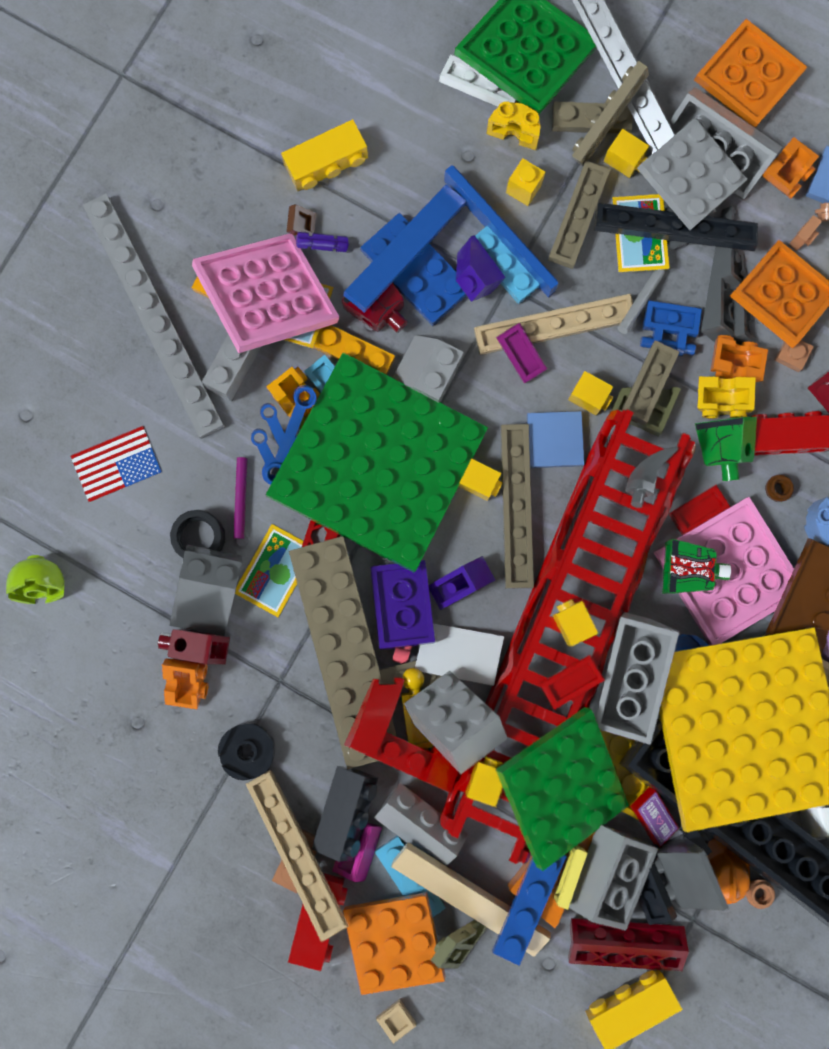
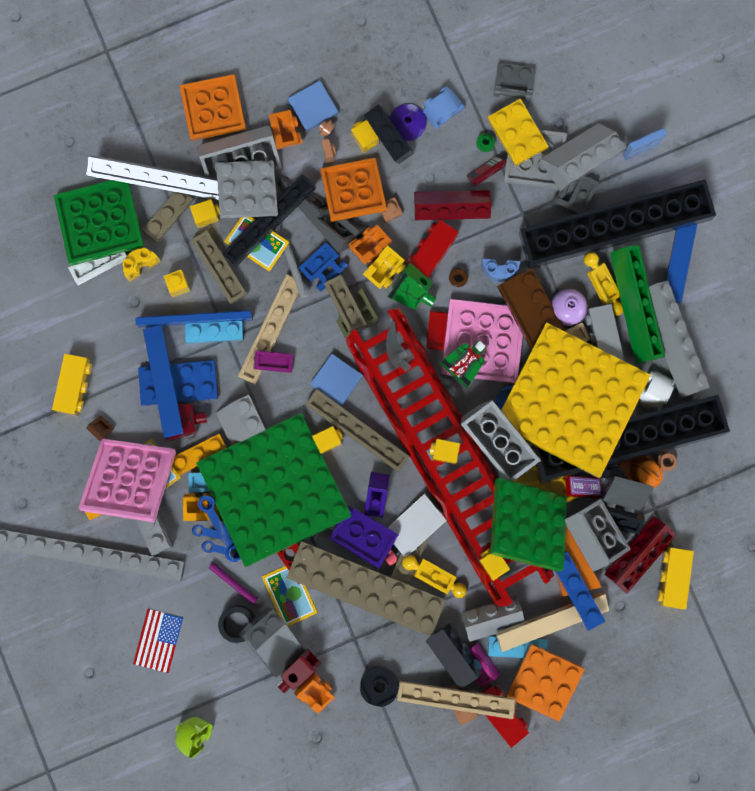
camera: 55 degrees left, 0 degrees up
(322, 242) = (121, 425): dark purple axle -> none
(370, 738) = (422, 609): red wedge -> none
(396, 1021) = (588, 713): tan tile -> none
(456, 721) = (449, 556): light grey brick -> none
(456, 947) = (571, 647): olive wing -> none
(476, 270) = (206, 350): dark purple slope -> none
(570, 876) = (578, 557): light yellow tile -> none
(571, 681) = (475, 477): red tile -> none
(591, 393) = (326, 340): yellow brick -> none
(615, 106) = (173, 199): dark tan plate -> none

